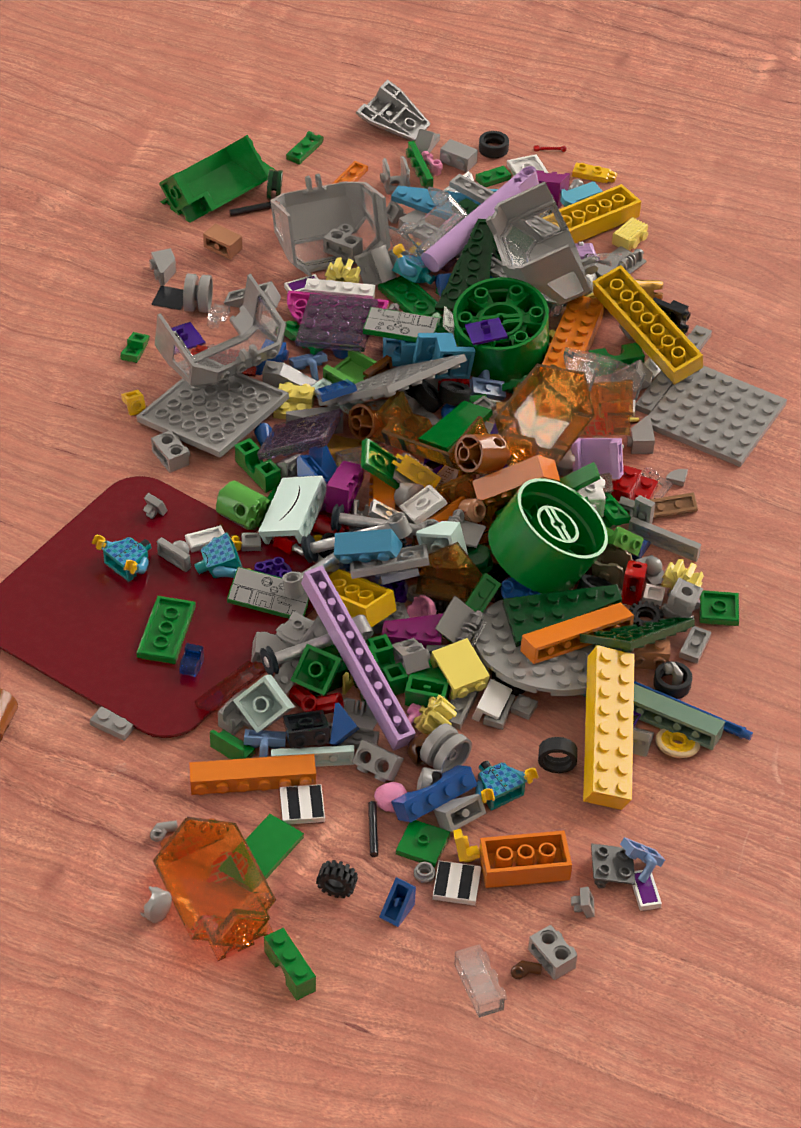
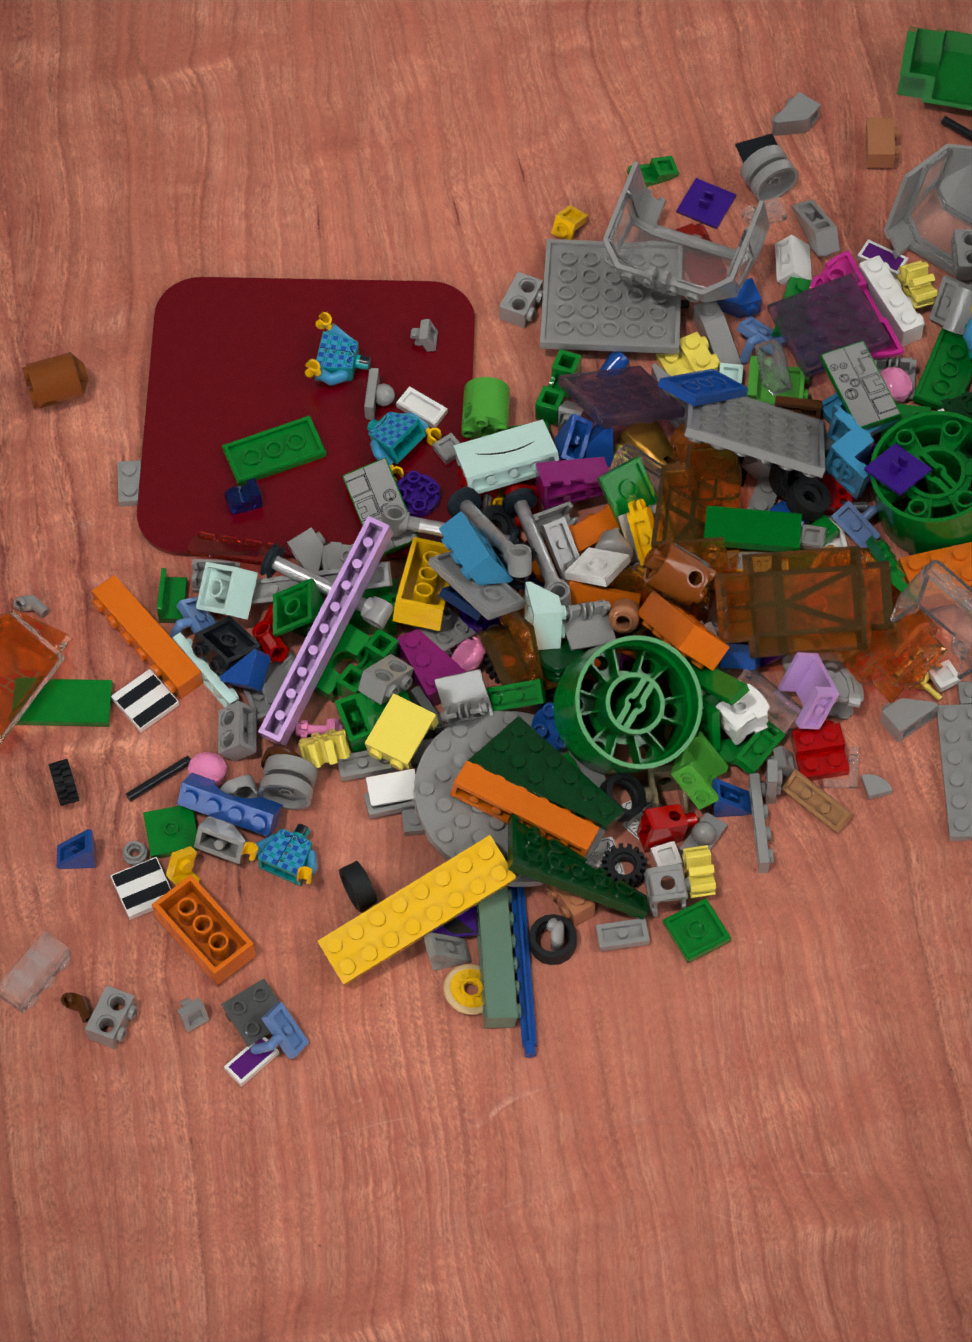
camera: 60 degrees right, 15 degrees up
(343, 361) = (773, 367): none -> clear brick

